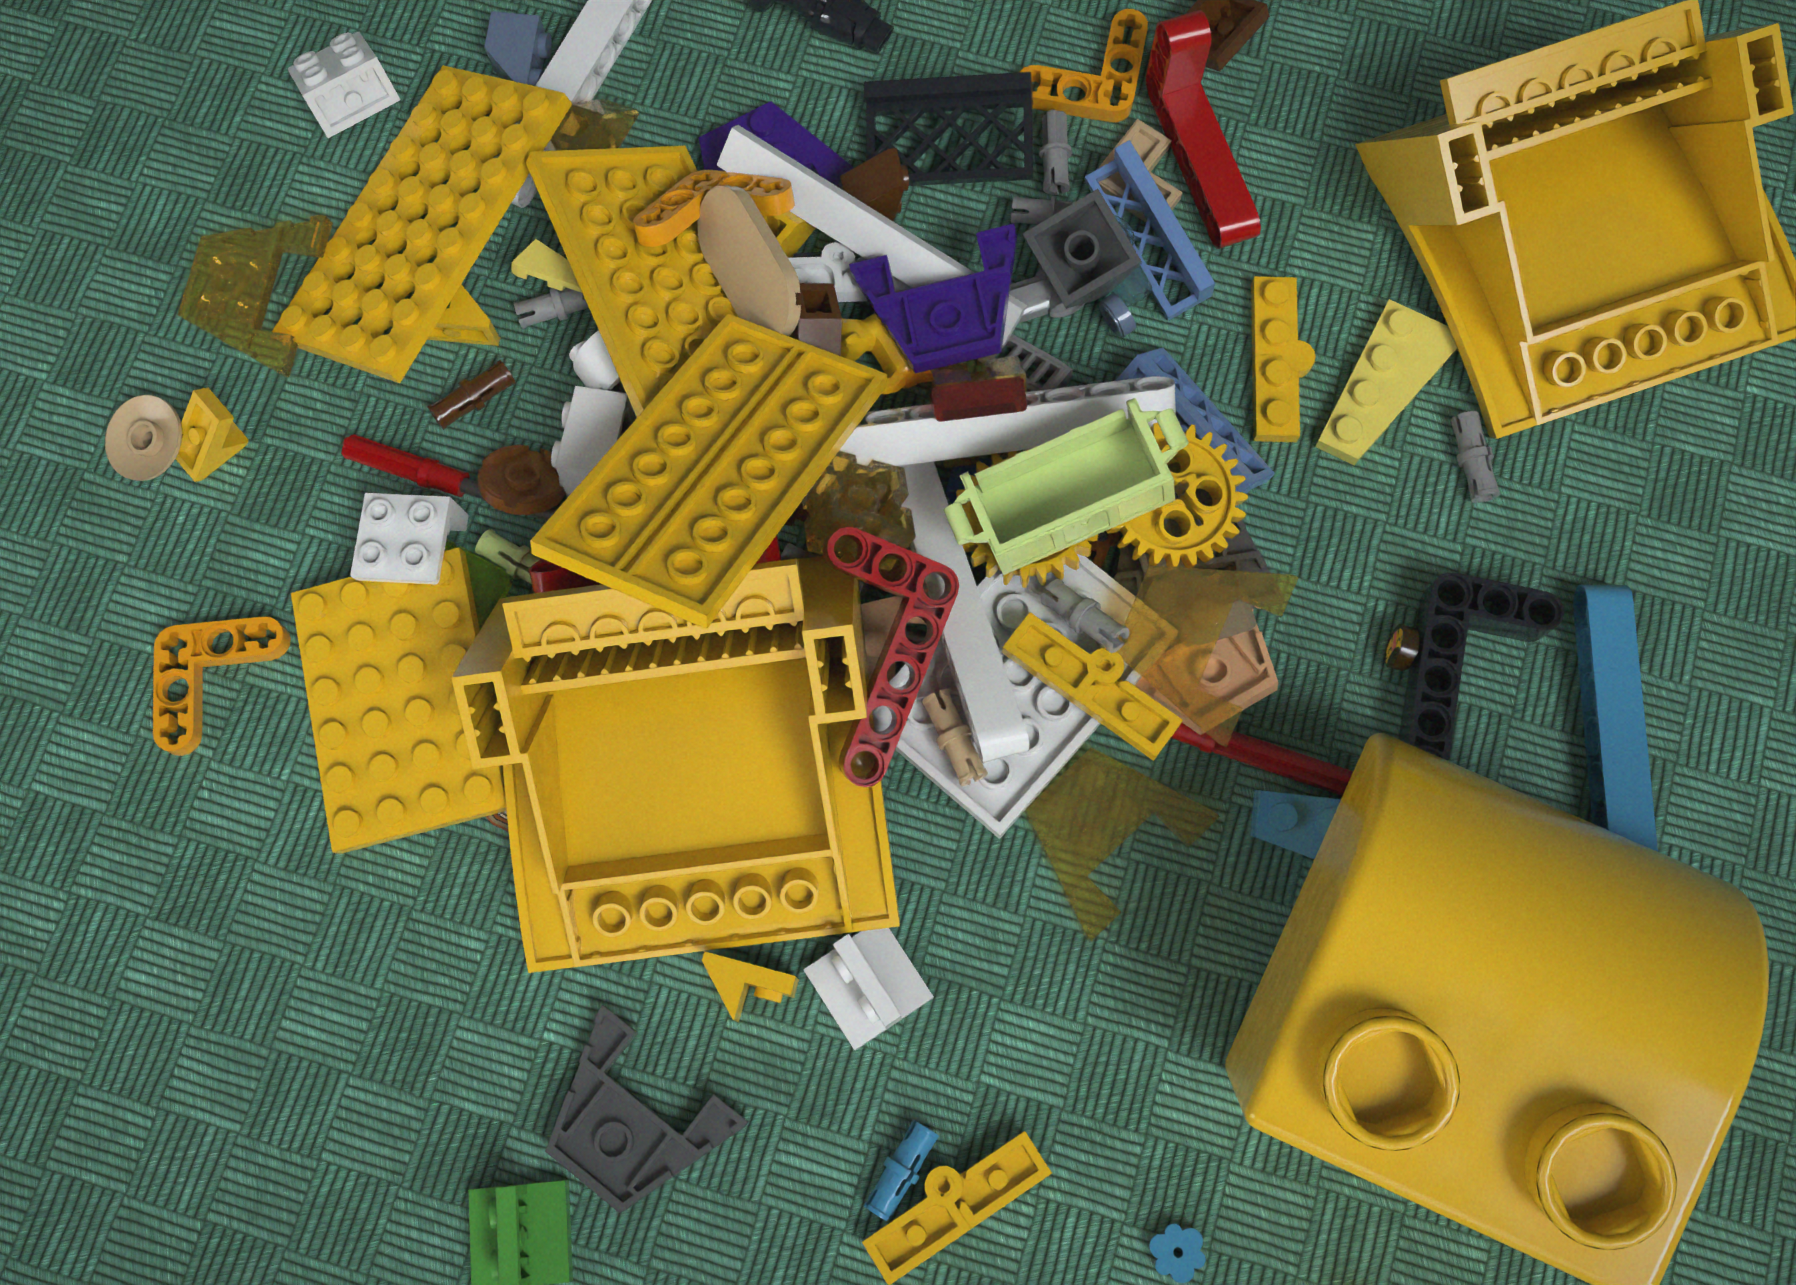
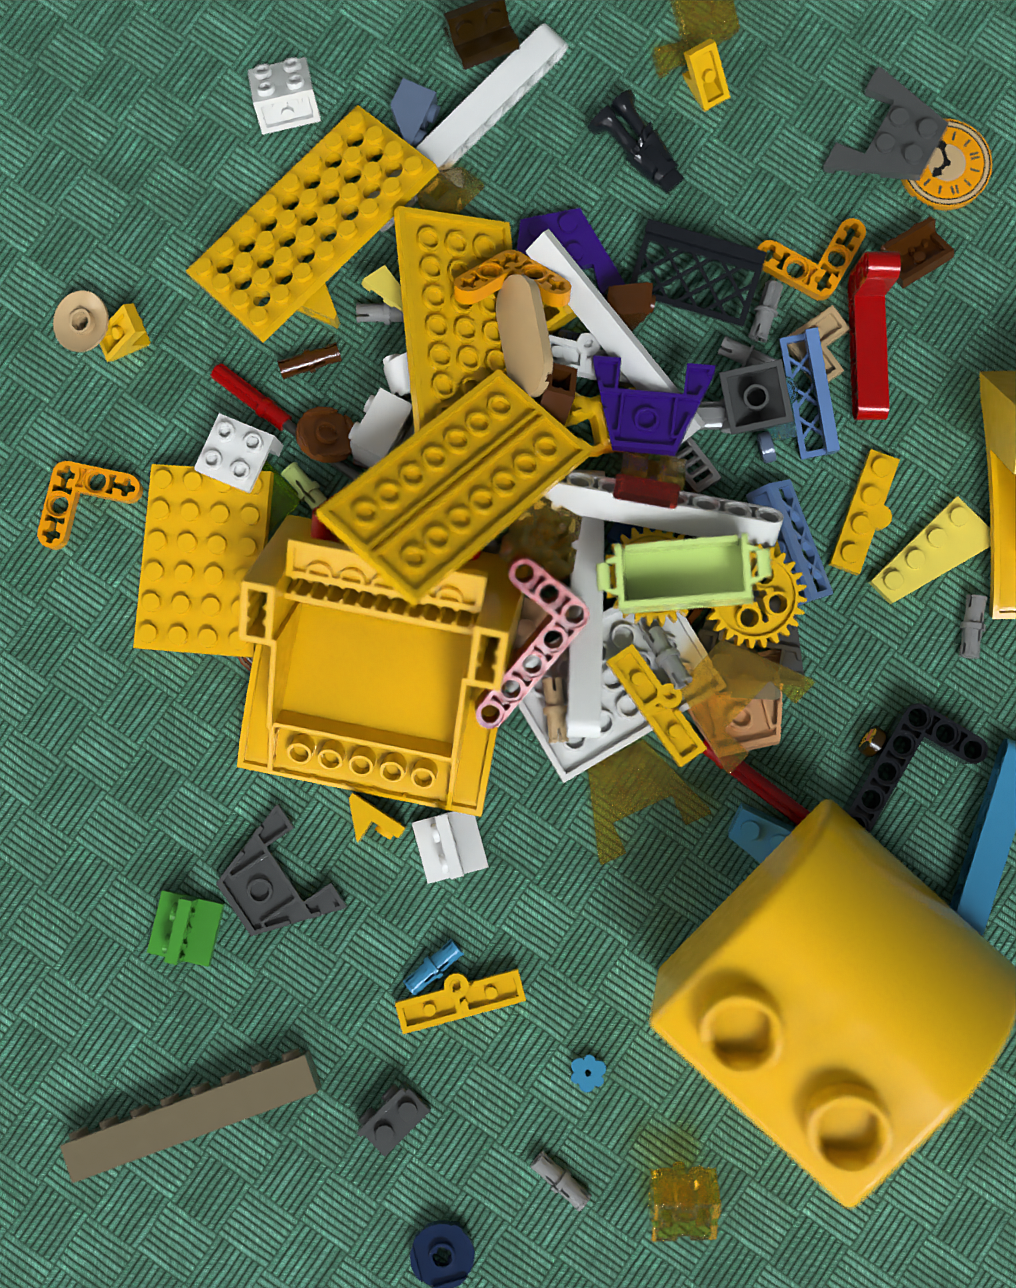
camera: 15 degrees right, 10 degrees up
(235, 281) = (169, 227): clear yellow wing -> none

